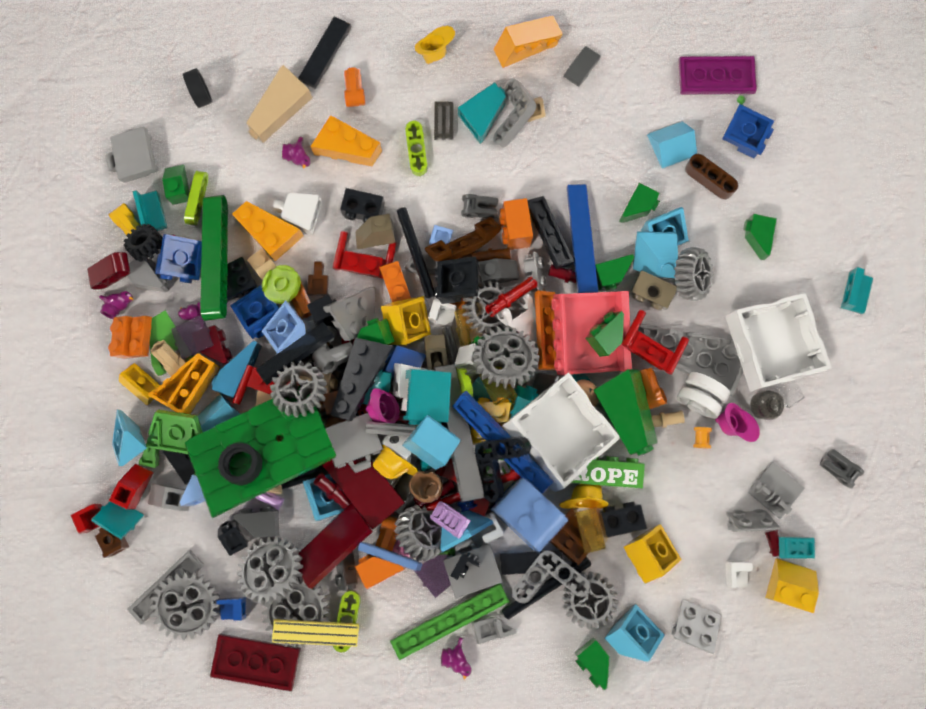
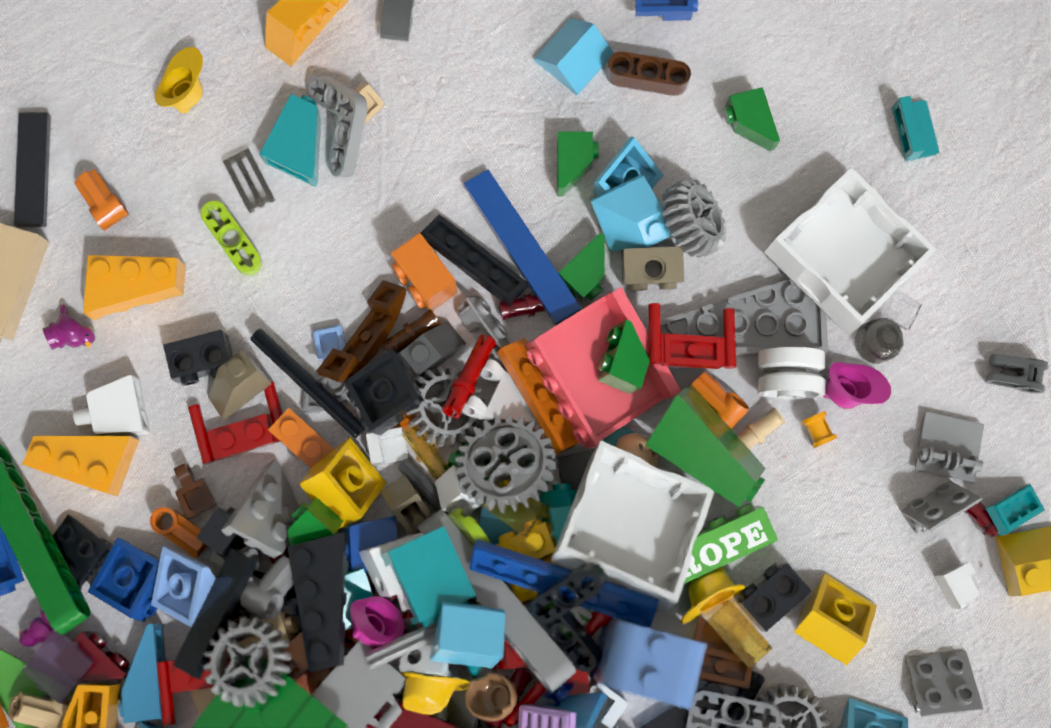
camera: 30 degrees left, 0 degrees up
(261, 263) = (111, 514): tan slope -> none
(281, 284) = (144, 525): lime tile -> none
(476, 211) = (353, 268): dark grey piece -> none

